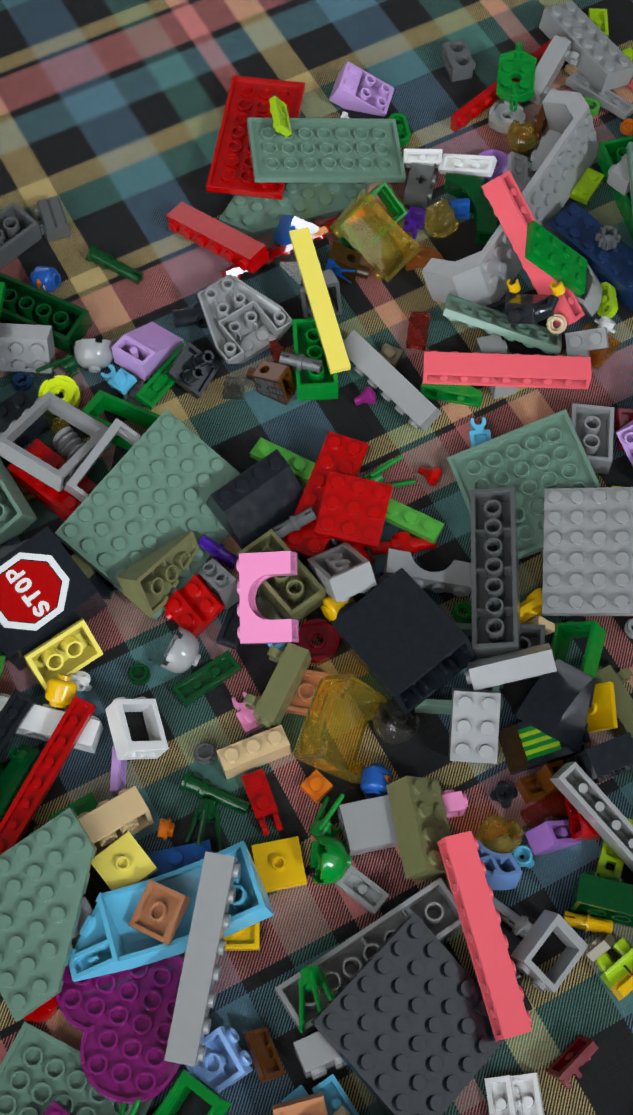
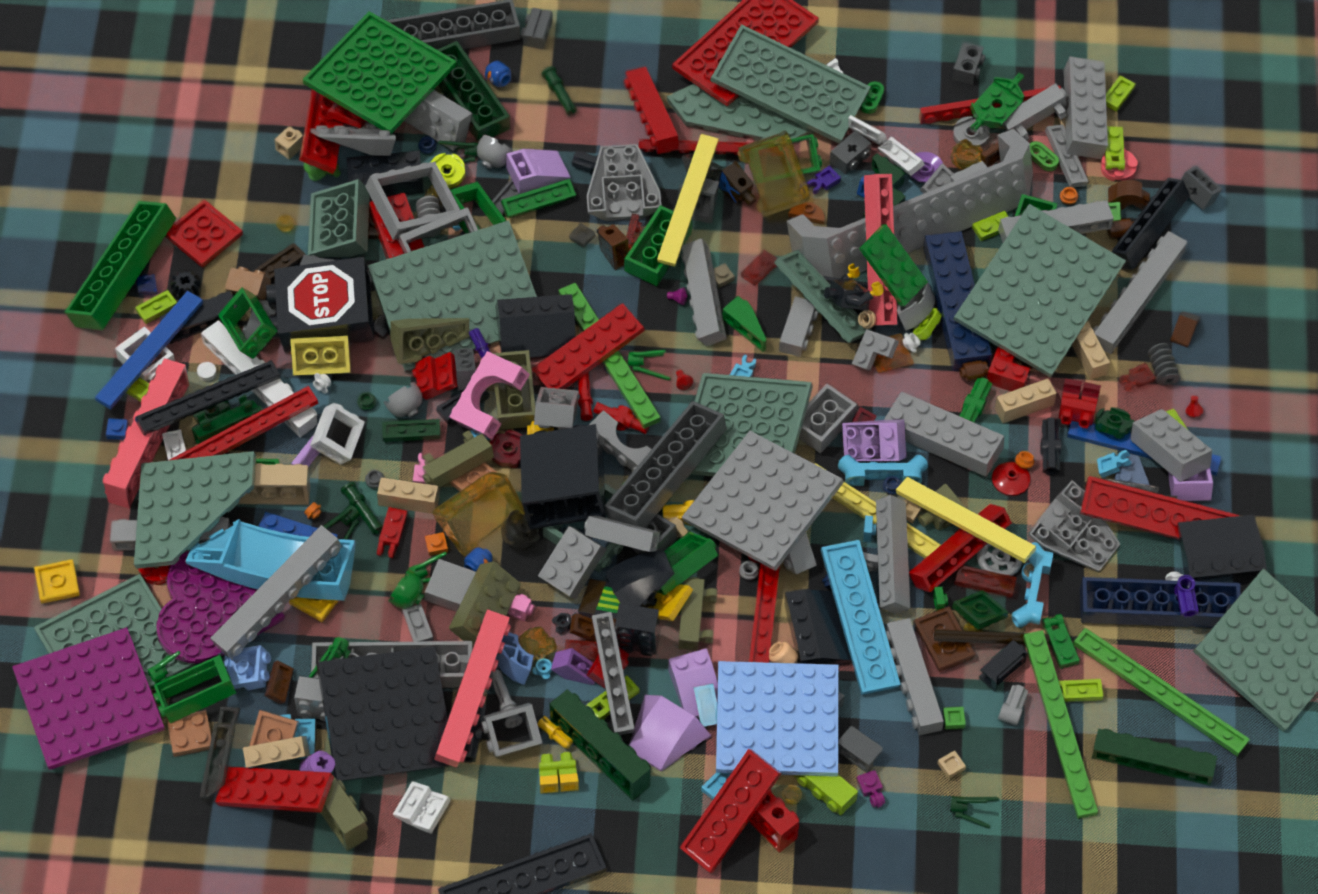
camera: 30 degrees right, 5 degrees down
(60, 690) = (302, 378): yellow head -> none
(119, 380) = (500, 182): medium azure plate -> none
(123, 863) = (269, 513): light yellow plate -> none
(159, 912) = (269, 552): nougat plate -> none
(193, 369) = (559, 204): black plate -> none
(280, 116) = (766, 37): lime plate -> none
(280, 864) = (373, 578): yellow plate -> none
(290, 223) = (720, 131): blue slope -> none
(295, 523) = (549, 356): dark grey pin -> none
(300, 362) = (640, 240): dark grey pin -> none
(353, 509) = (598, 369): red plate -> none
(361, 91) = (865, 49): lavender slope -> none
(440, 219) = (843, 188): clear yellow hair -> none
(506, 370) = (795, 331): coral brick -> none
(573, 1057) = (487, 803): dark red plate -> none
(600, 946) = (550, 747): dark tan plate -> none
(608, 237) = (957, 272): dark grey gear -> none

